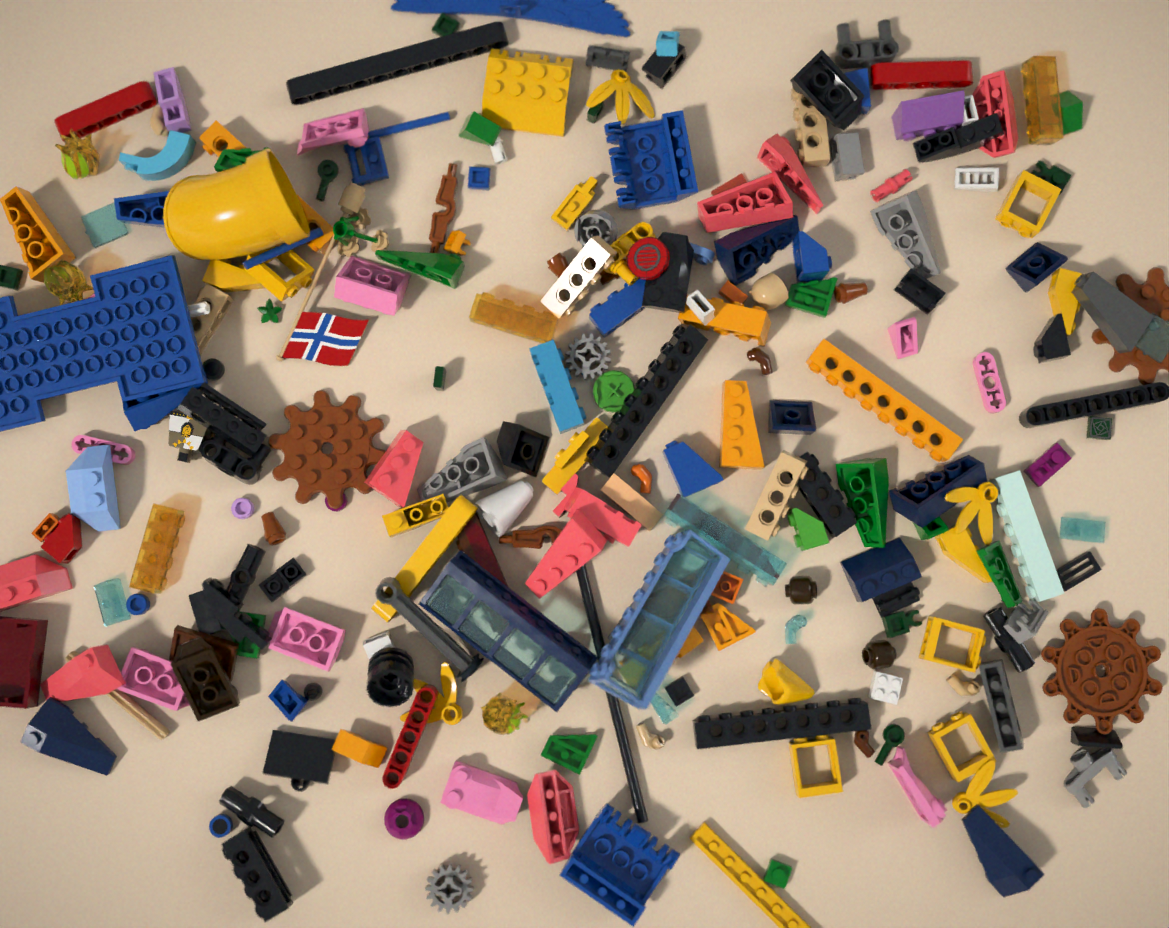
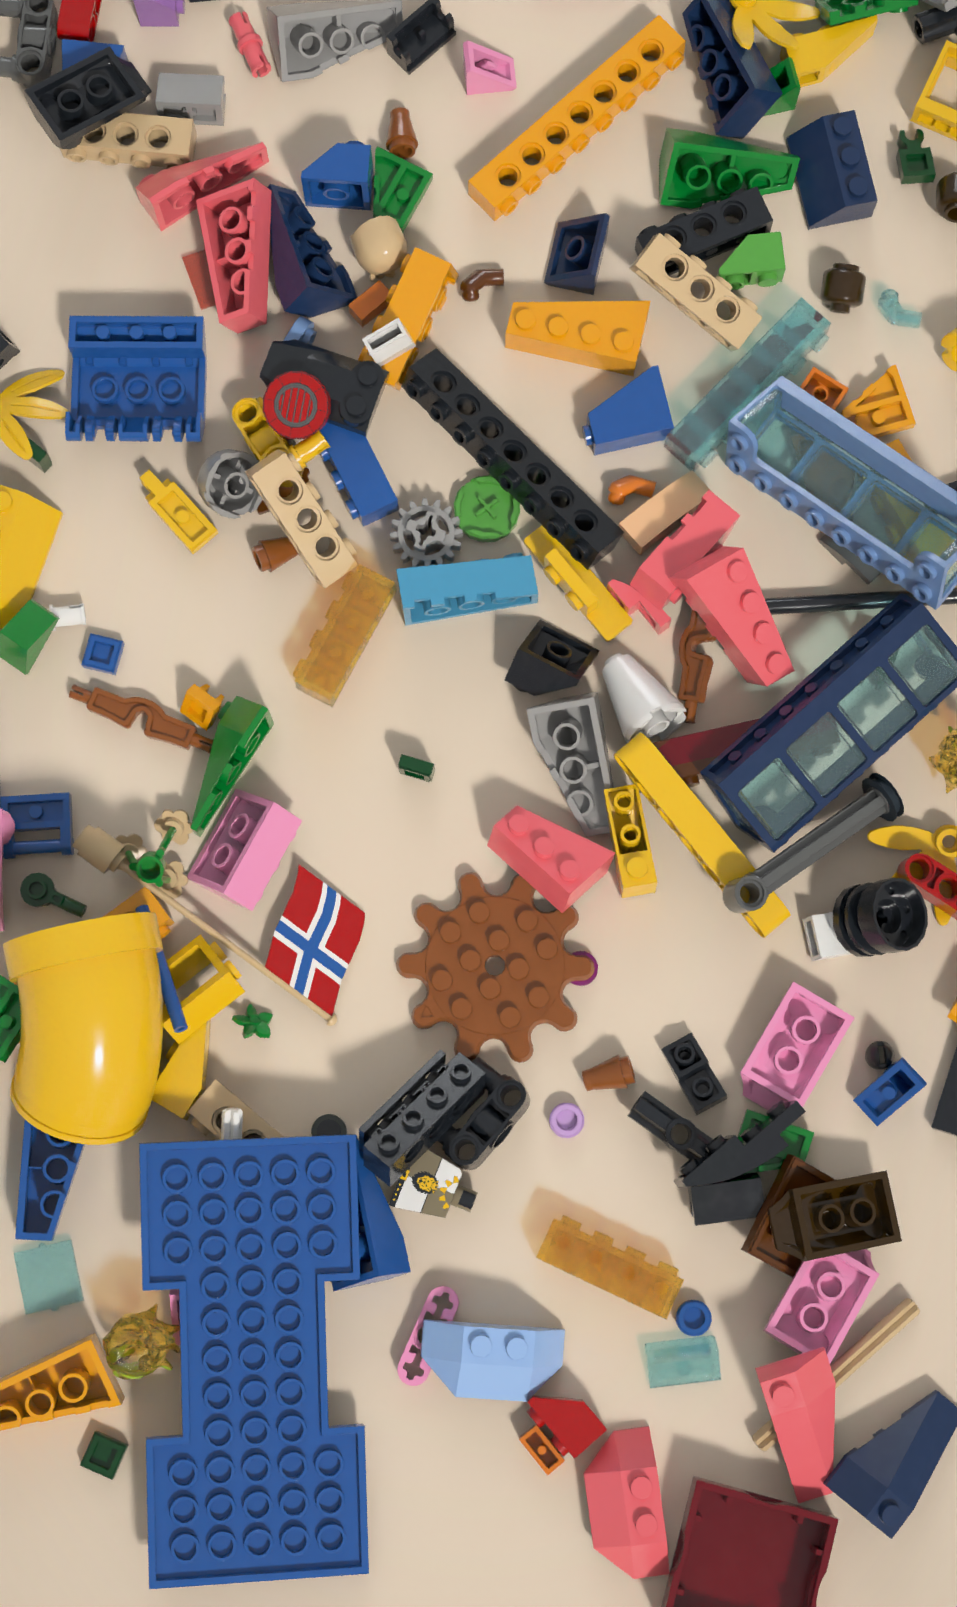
camera: 80 degrees left, 5 degrees down
(896, 599) = (880, 156): black hinge -> none

